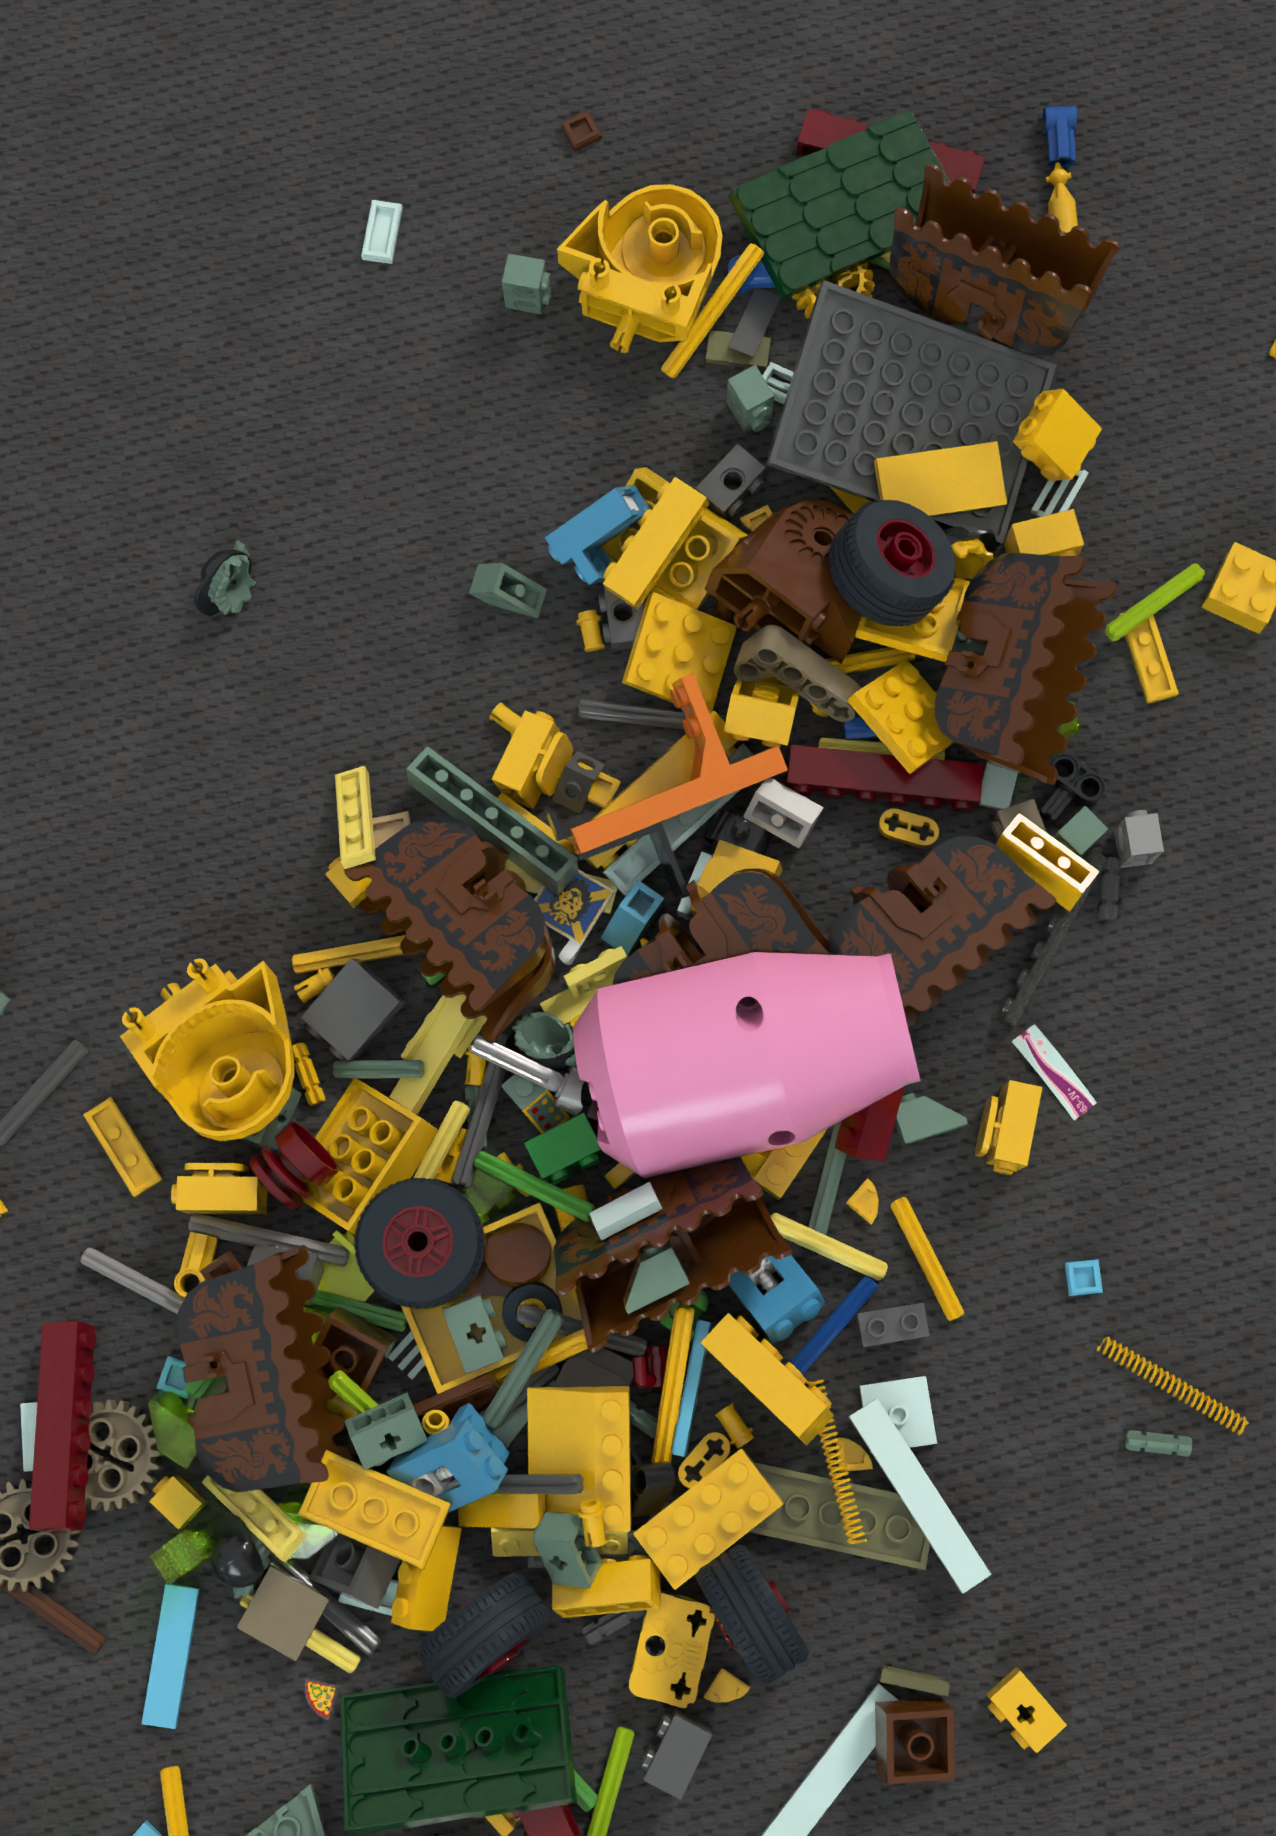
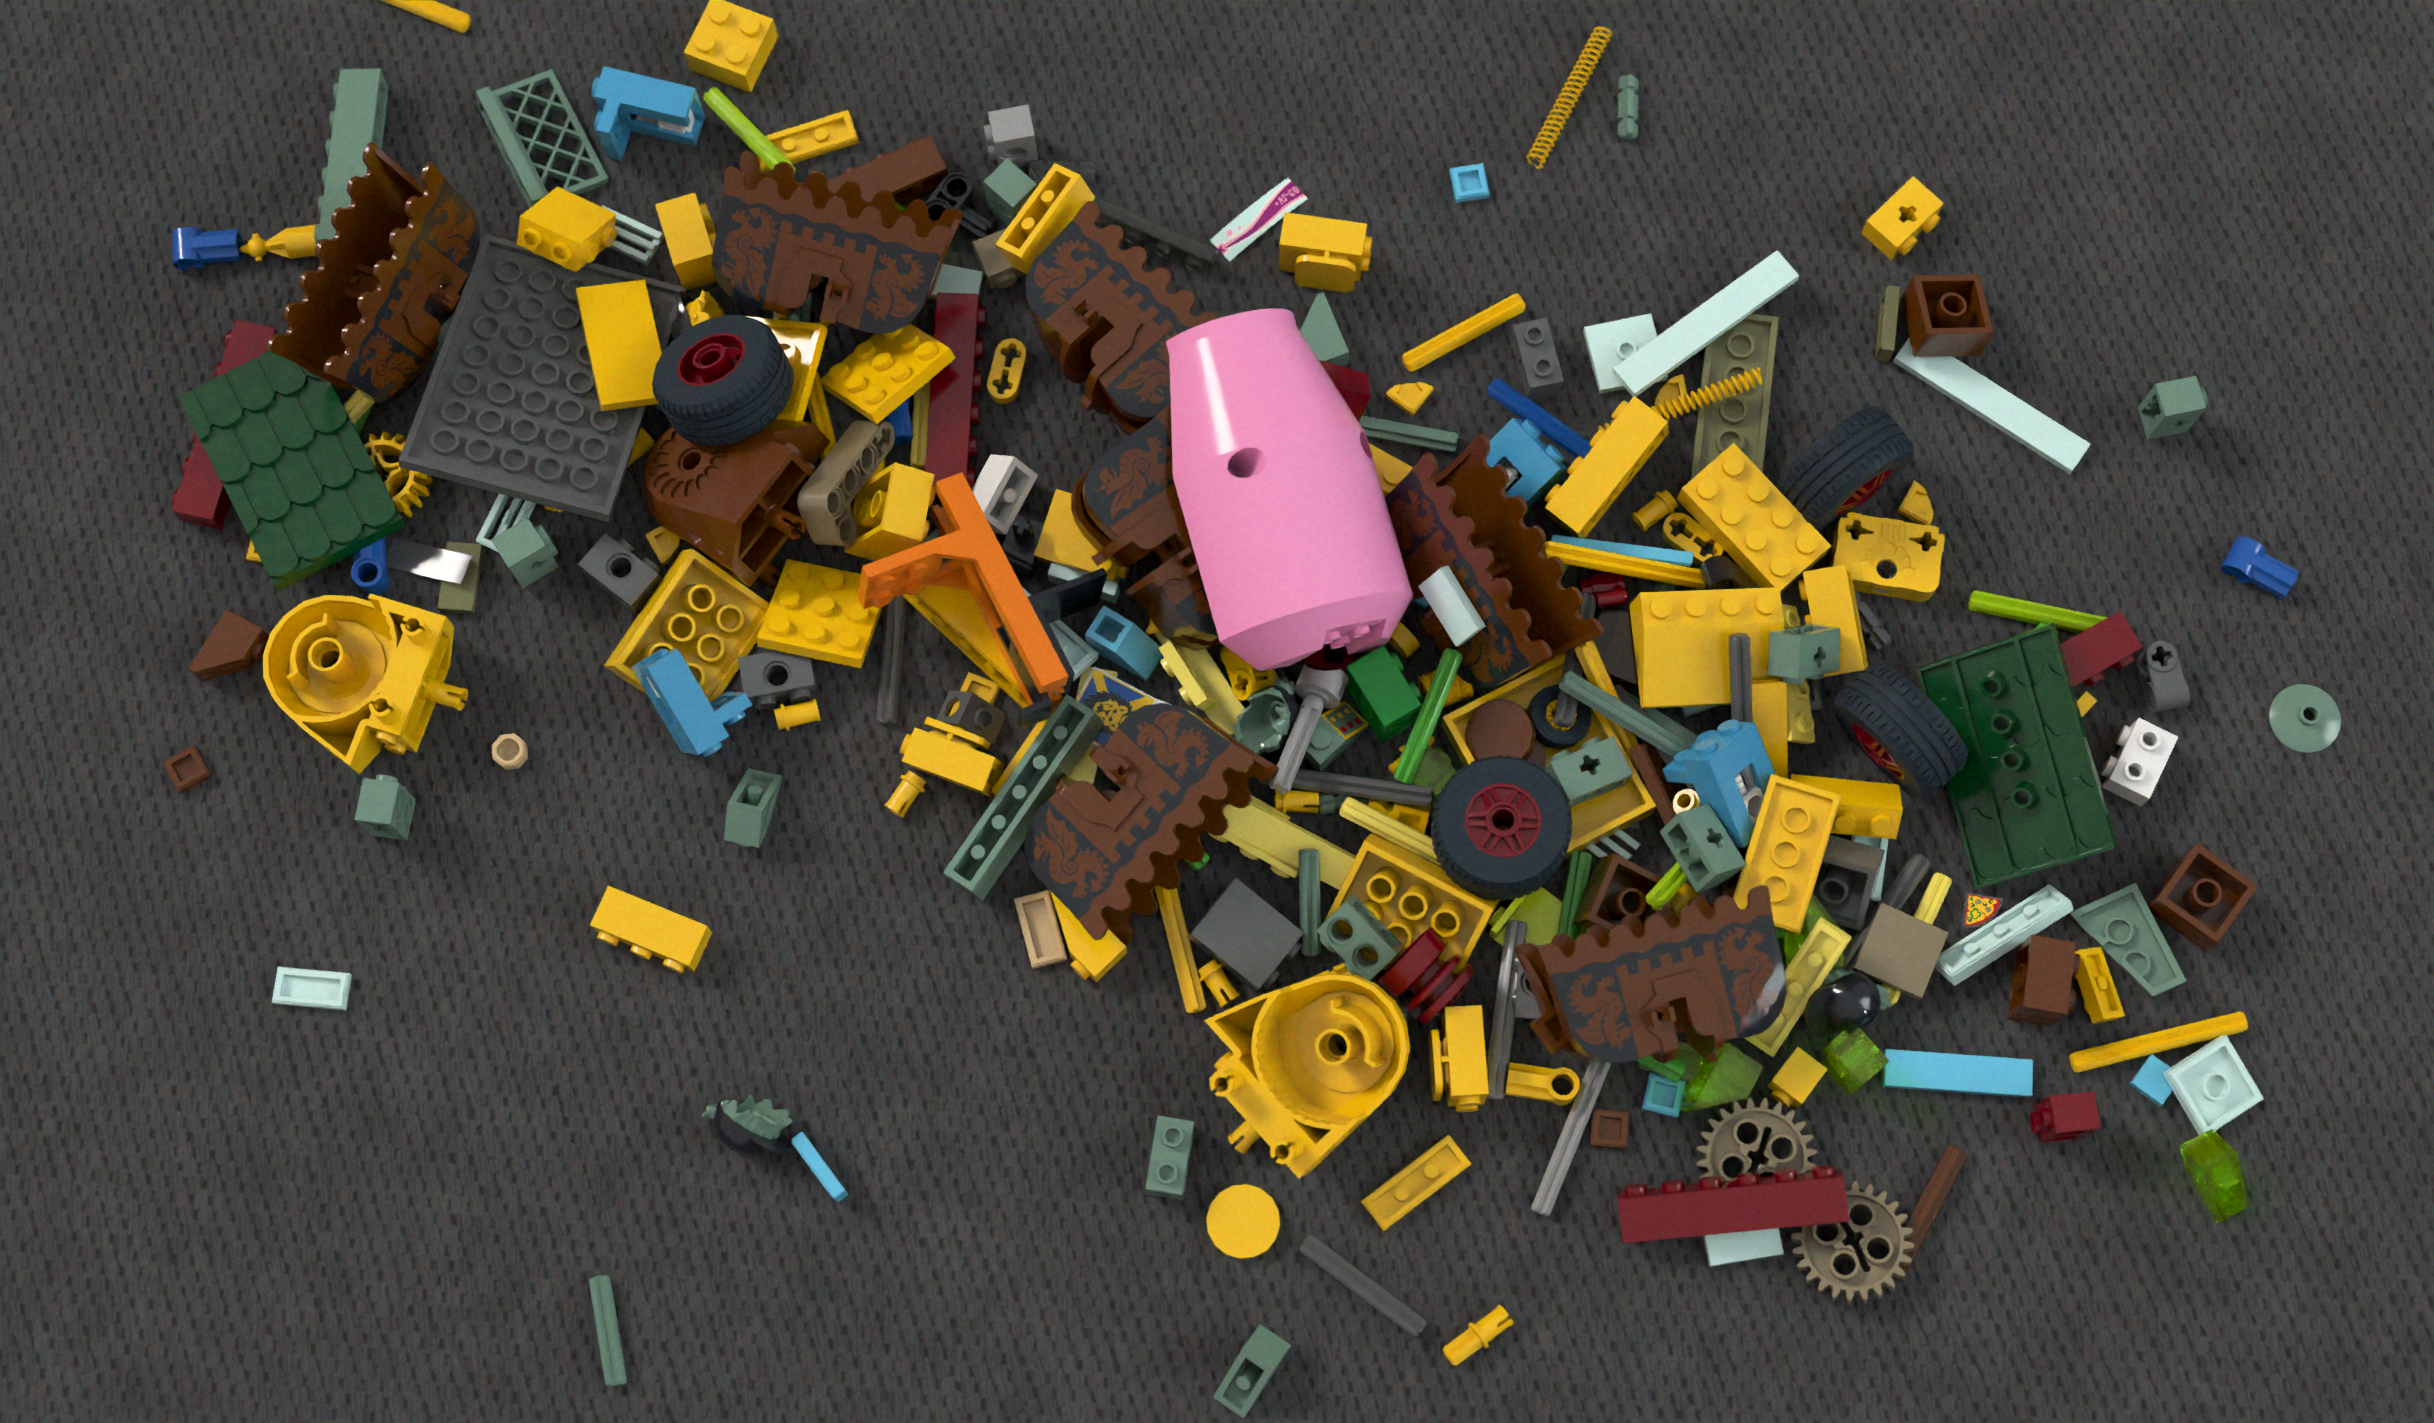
camera: 95 degrees left, 5 degrees down
(70, 464) = (607, 1330): none -> sand green axle
(104, 993) = (1243, 1221): none -> yellow tile
(110, 1750) = (2065, 1117): none -> dark red brick
(153, 1325) = (1609, 1129): none -> reddish brown tile
(162, 931) = (1170, 1157): none -> sand green brick
(186, 637) = (819, 1167): none -> medium azure tile
(237, 1801) = (2098, 986): none -> yellow plate
(239, 1747) = (2043, 980): none -> reddish brown brick
(294, 1716) = (2002, 934): none -> light aqua tile
(339, 1111) = (1367, 932): none -> sand green brick
(354, 817) = (1029, 944): light yellow tile -> none
(405, 502) = (650, 930): none -> yellow brick
(575, 389) = (509, 751): none -> tan tile
(593, 1528) = (1768, 620): yellow pin -> none
(654, 1276) = (1522, 569): sand green slope -> none
(655, 543) = (702, 635): yellow brick -> none
(677, 1752) = (1988, 540): dark grey brick -> none
(684, 160) = (229, 648): none -> reddish brown slope
(713, 310) = (415, 597): yellow axle -> none
(829, 1247) = (1464, 418): light yellow axle -> none
(1103, 727) = (904, 172): none -> reddish brown brick
(1146, 394) = (512, 144): none -> sand green fence
(1160, 256) = (356, 121): none -> sand green brick
(1184, 495) = (646, 107): none -> dark azure brick

